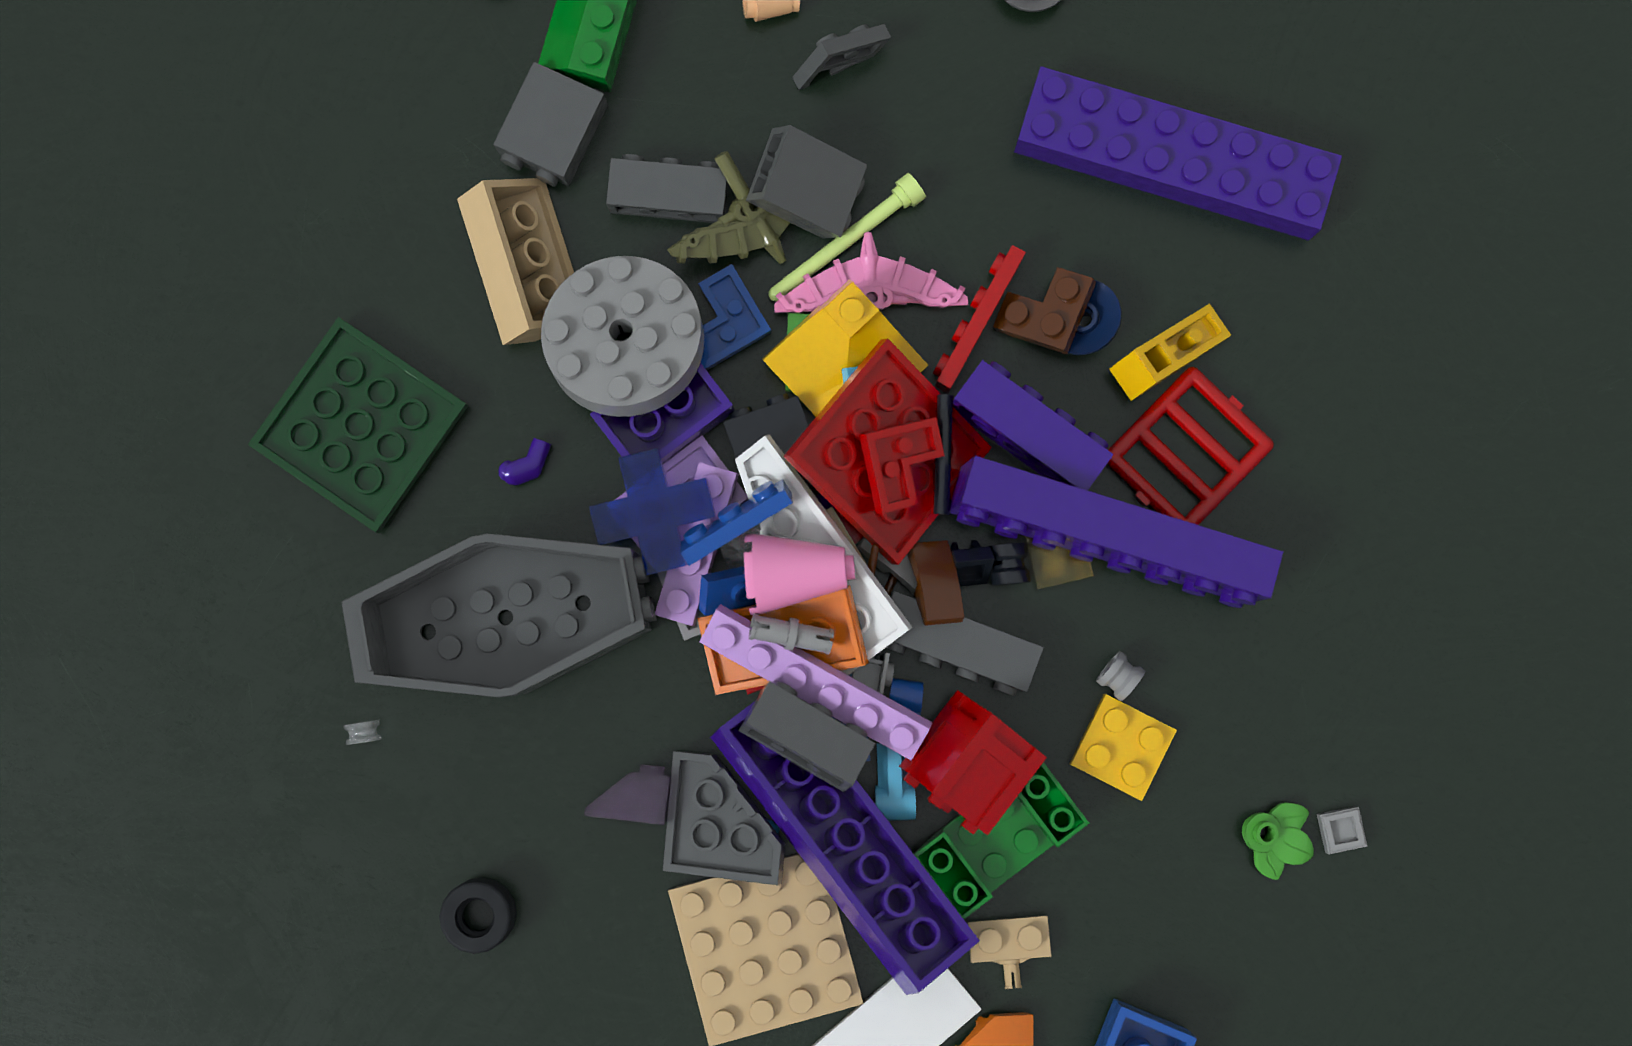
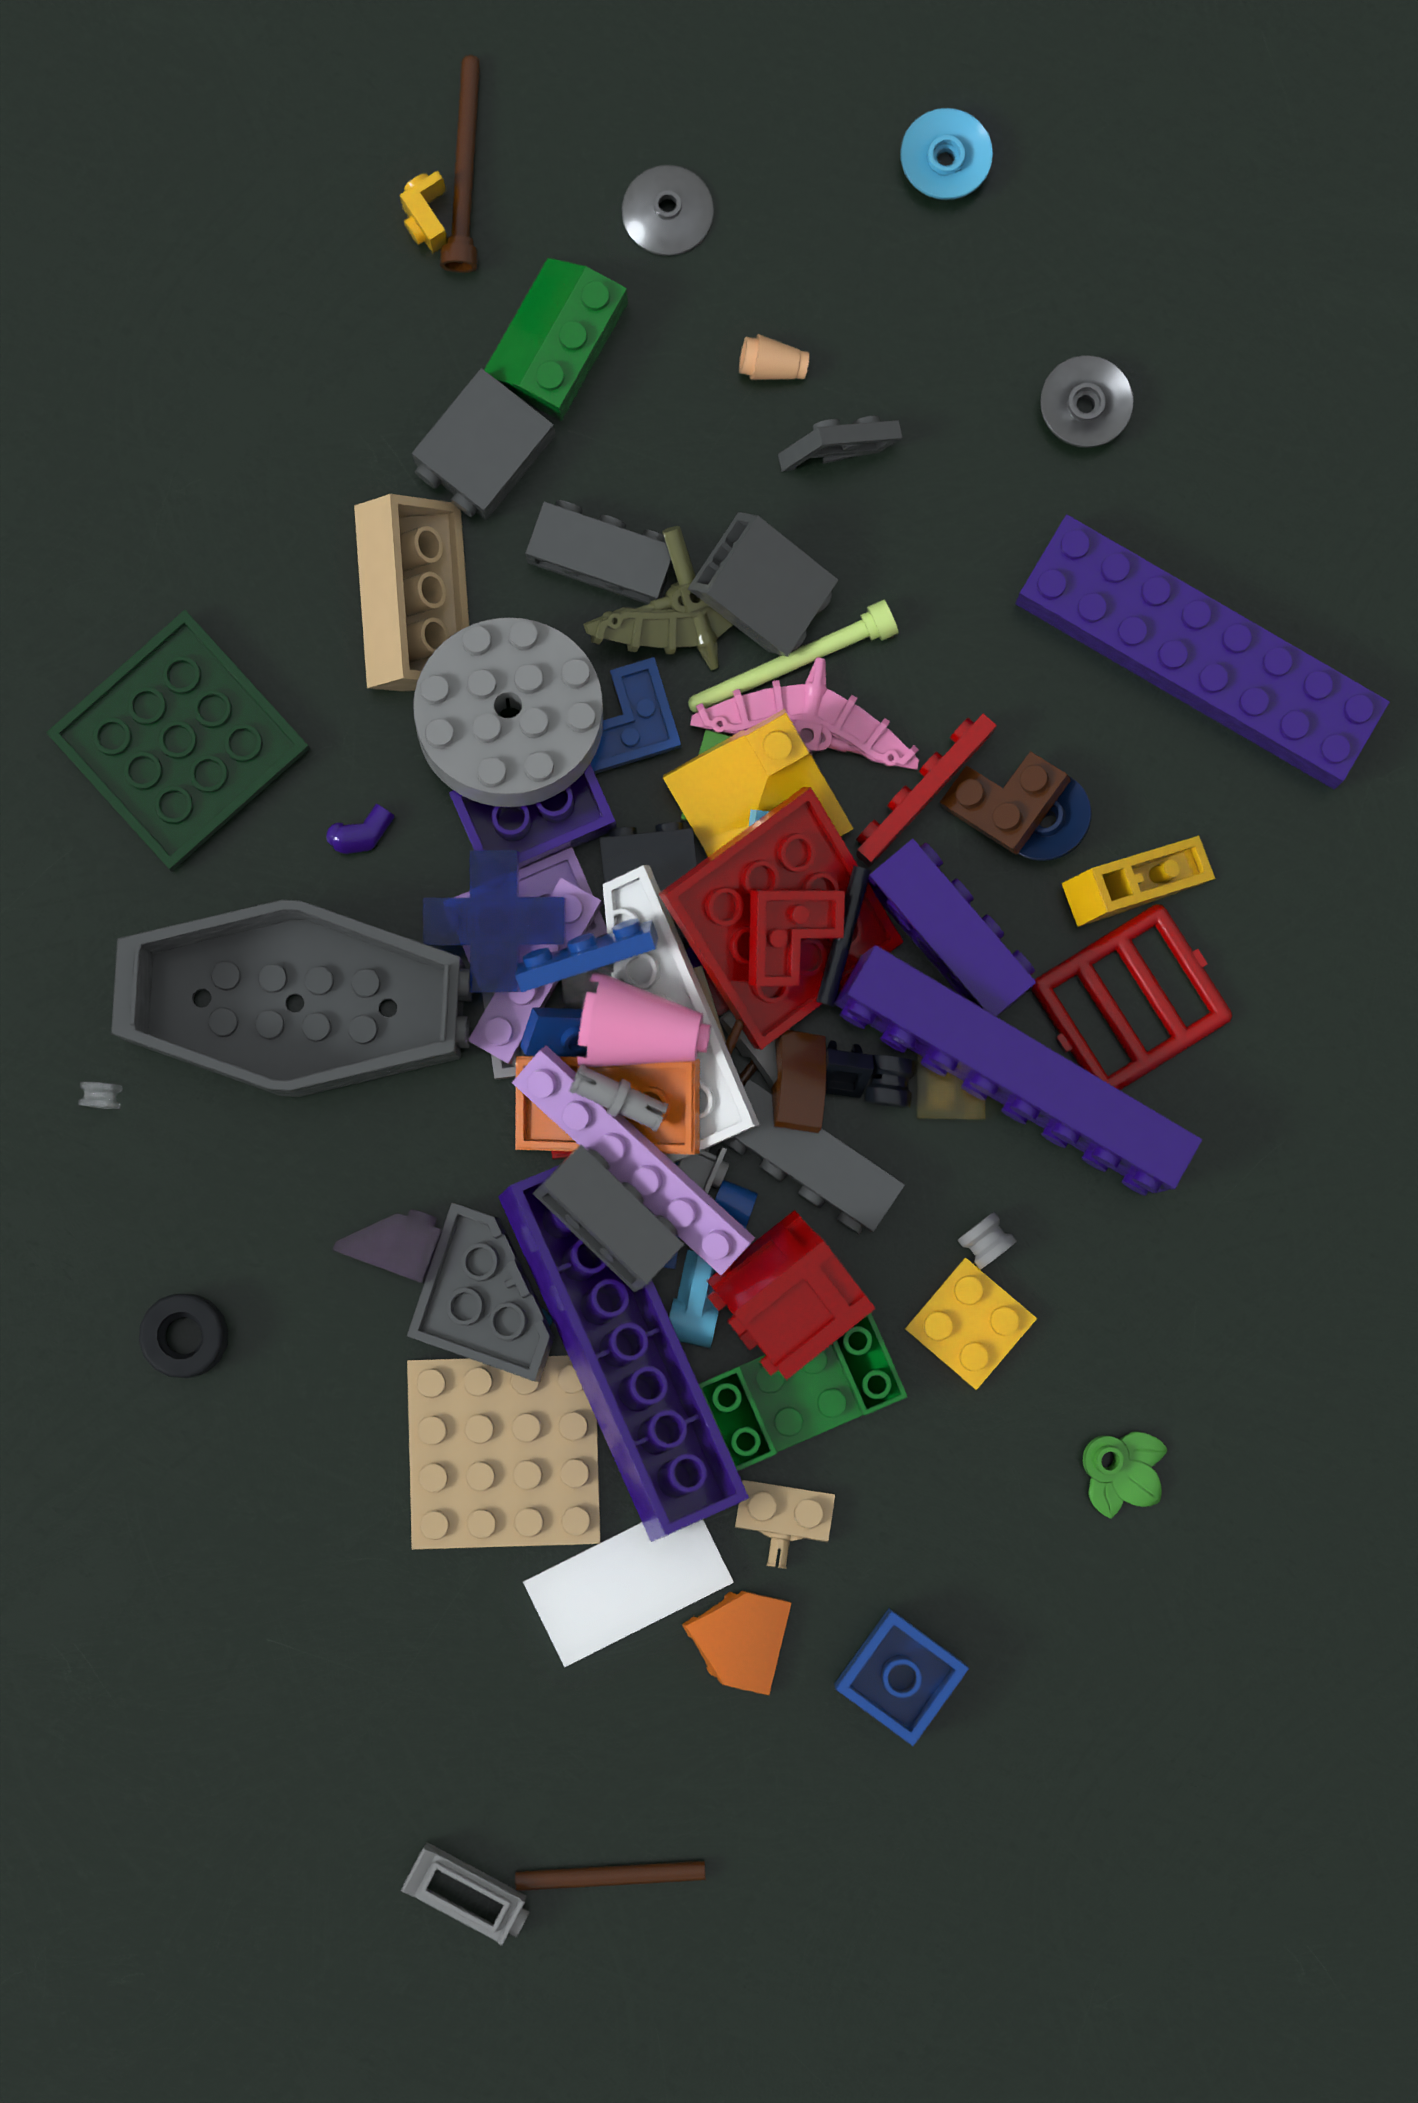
camera: 10 degrees right, 0 degrees up
(1342, 830) = (1199, 1479): light grey tile -> none

